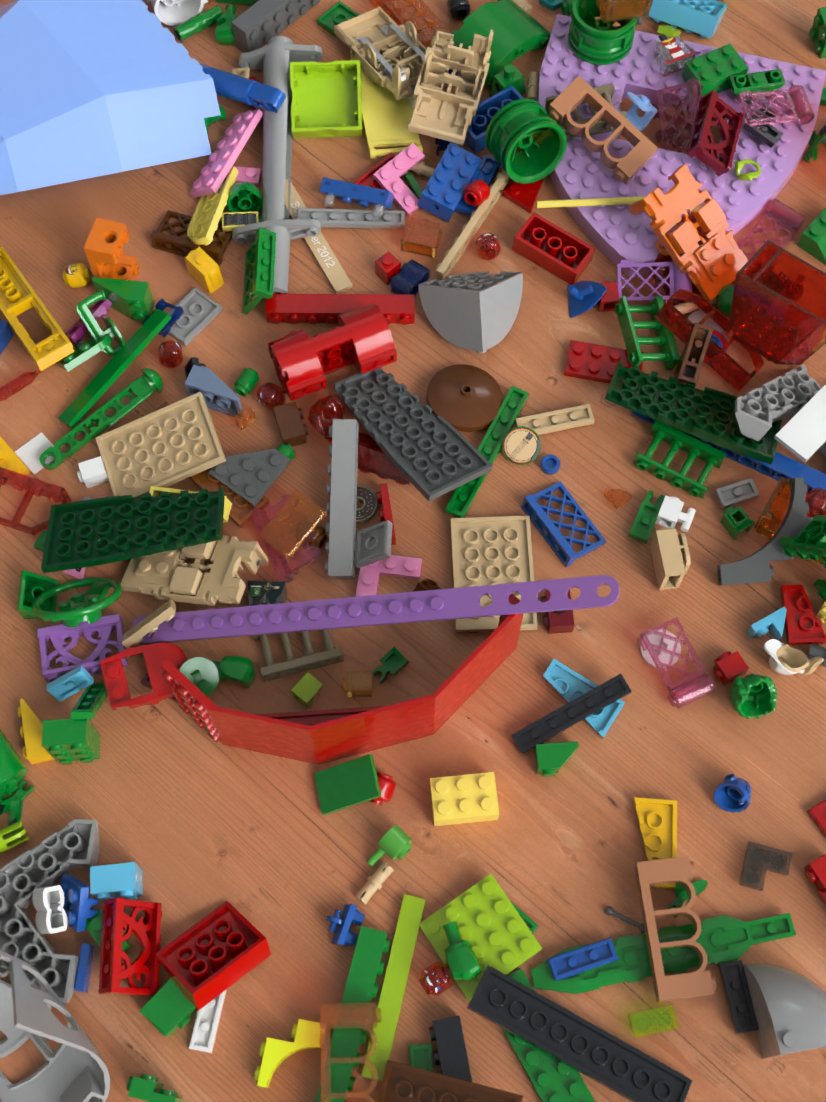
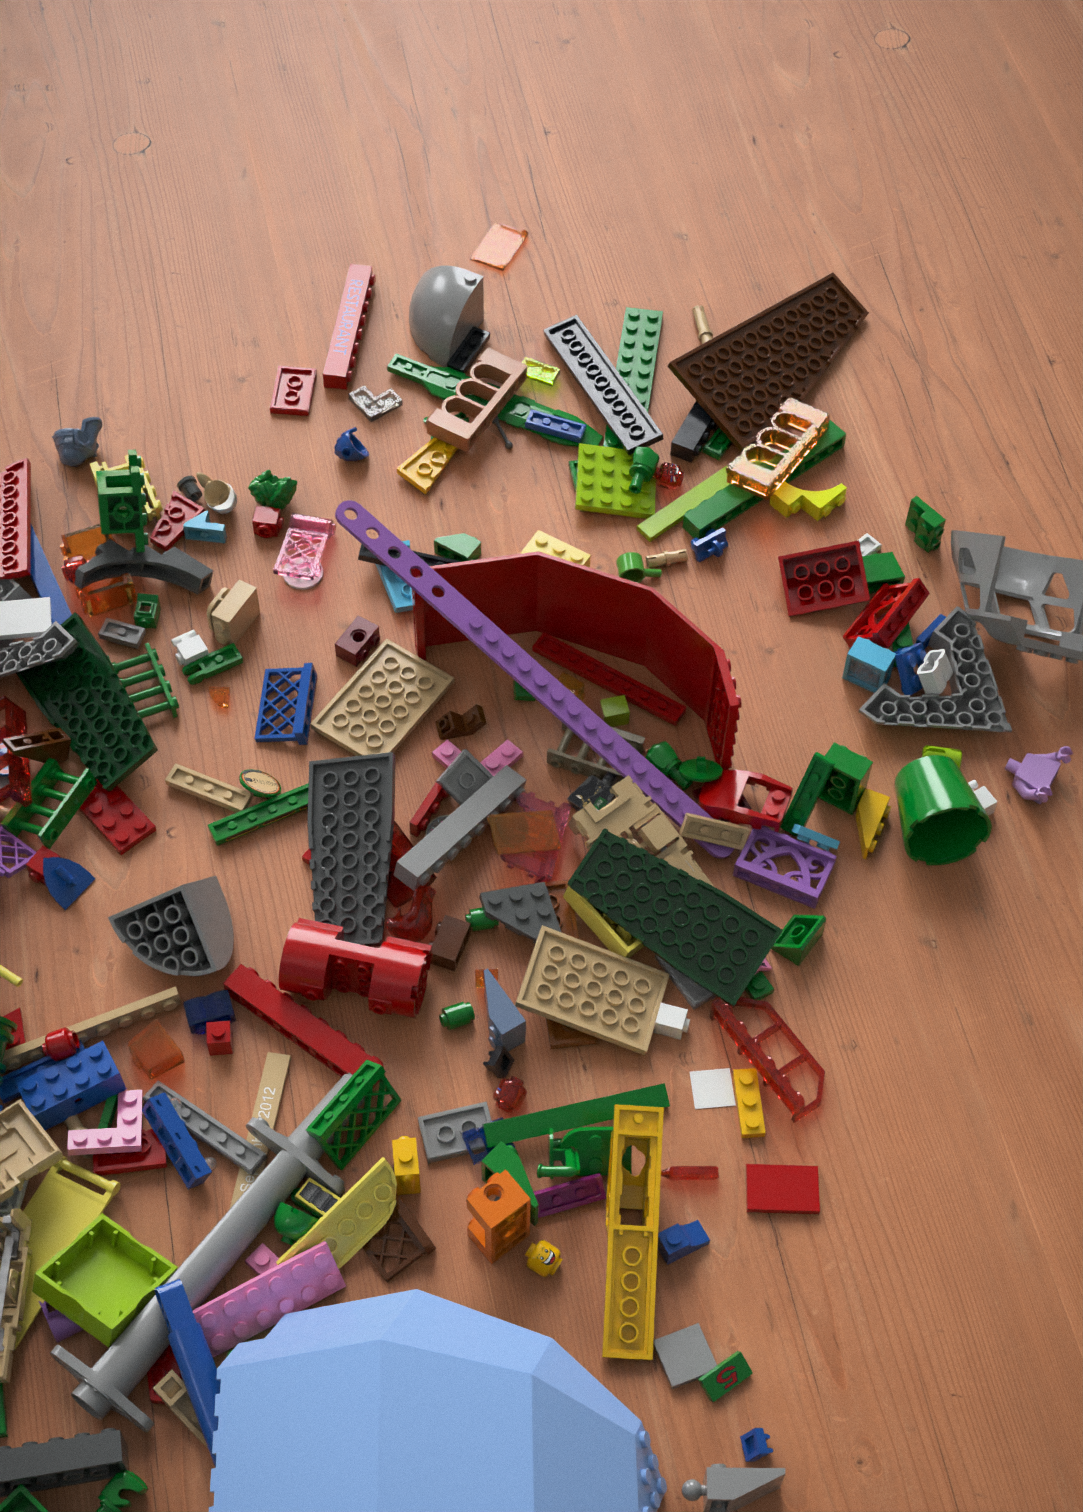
camera: 145 degrees left, 10 degrees down
(80, 606) = (781, 879): green piece -> none
(141, 388) = (565, 1071): green piece -> none
(270, 395) = (444, 983): clear red head -> none
(464, 397) = (267, 861): reddish brown dish -> none
(488, 246) = (101, 993): clear red head -> none
(550, 464) = (248, 759): blue tile -> none
(553, 248) = (45, 944): red brick -> none

